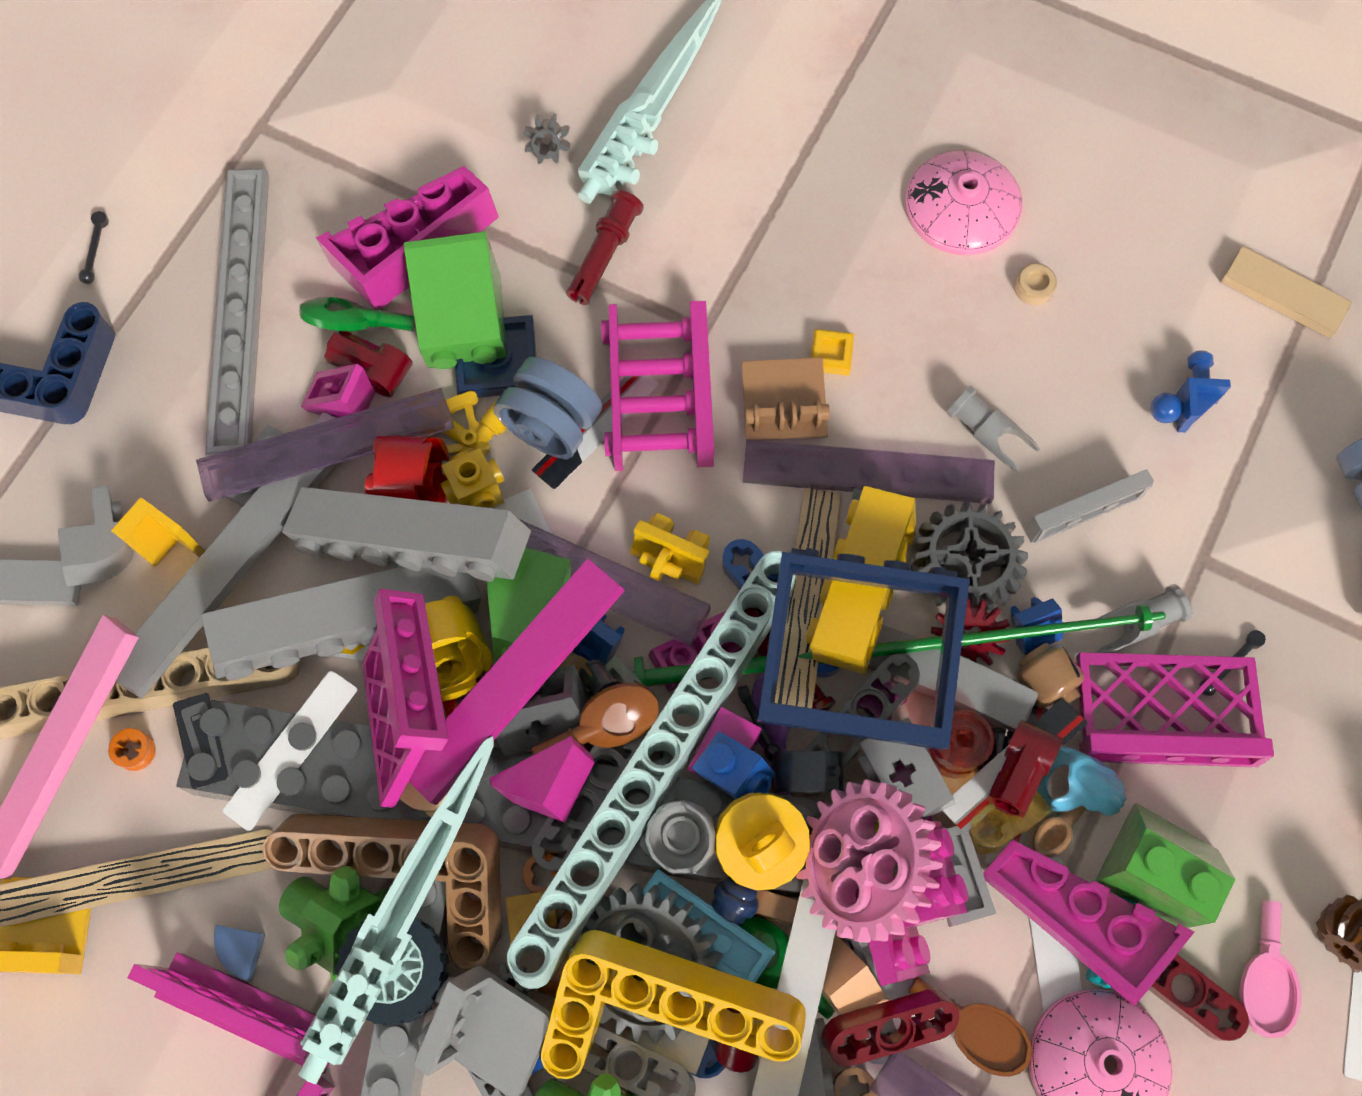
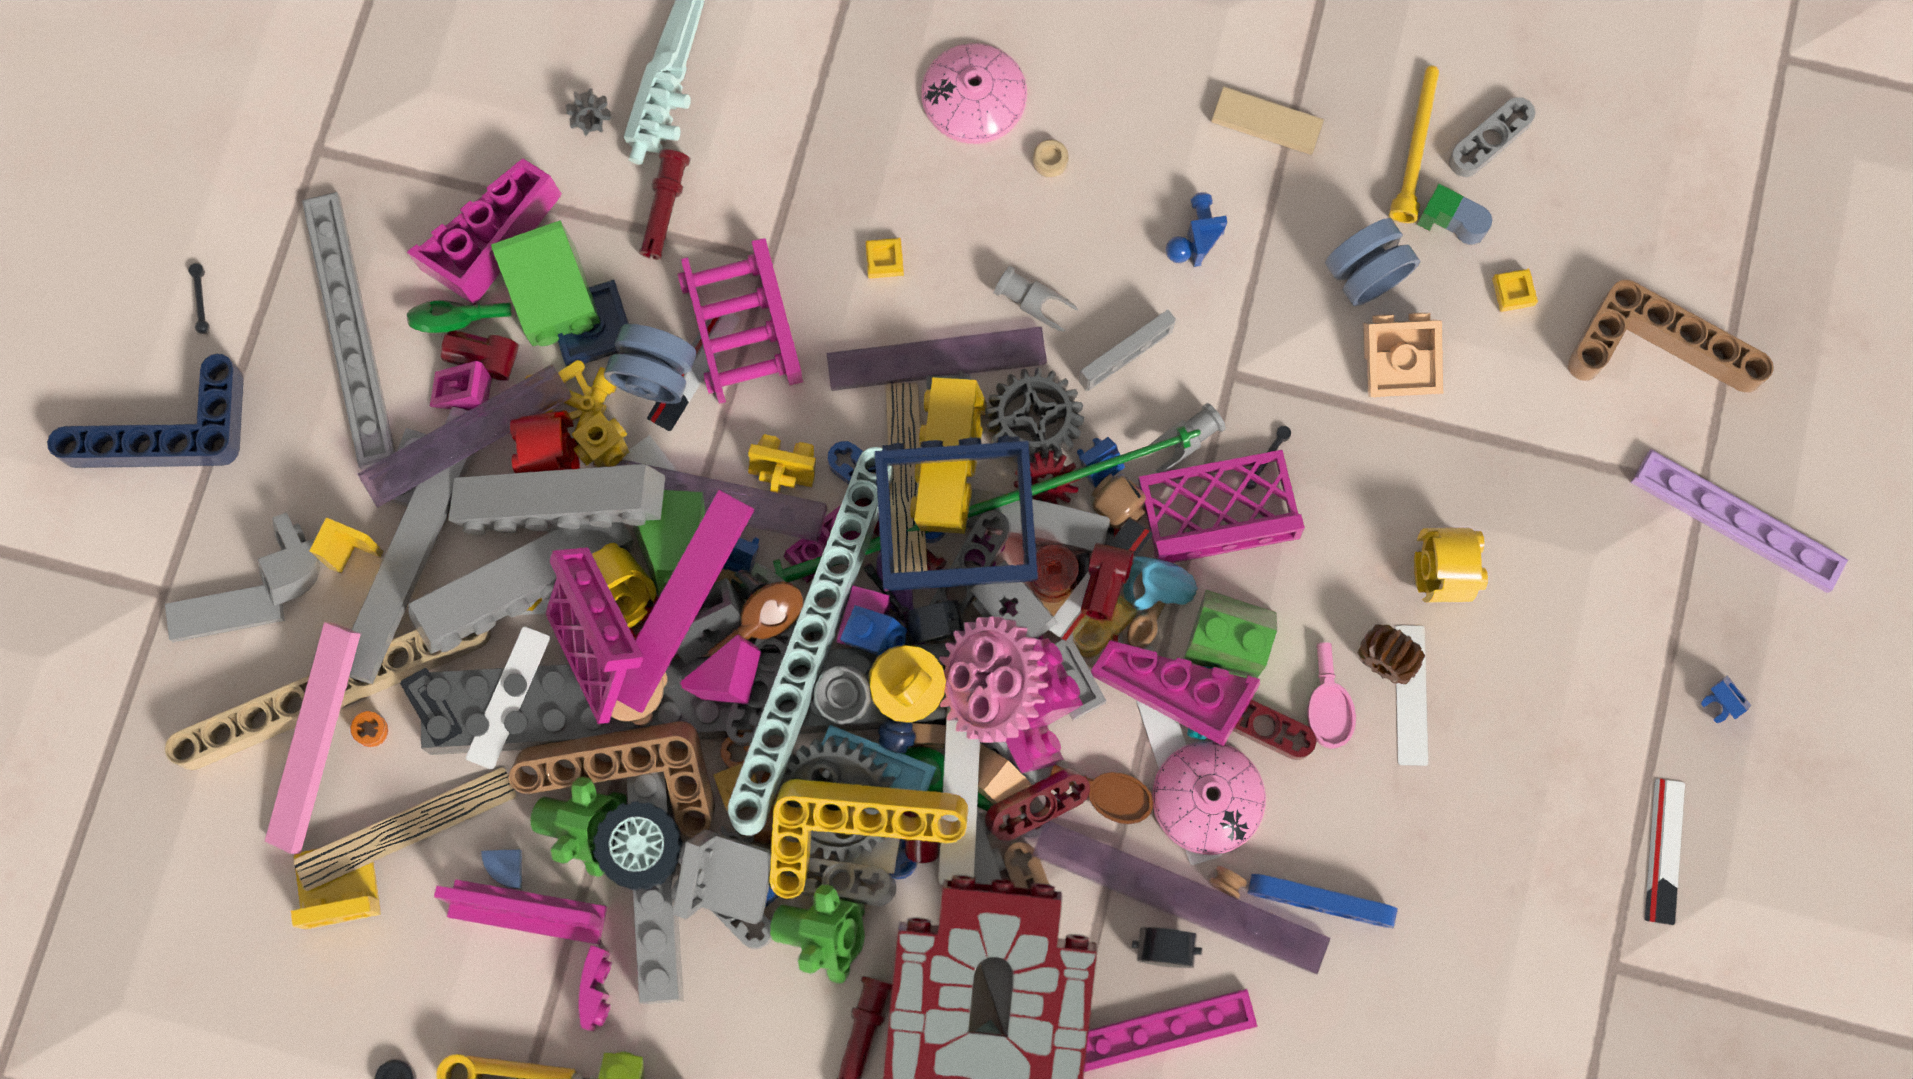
camera: 15 degrees left, 5 degrees up
(385, 935) = (629, 818): light aqua piece -> none
(784, 399) = (852, 310): medium nougat hinge -> none

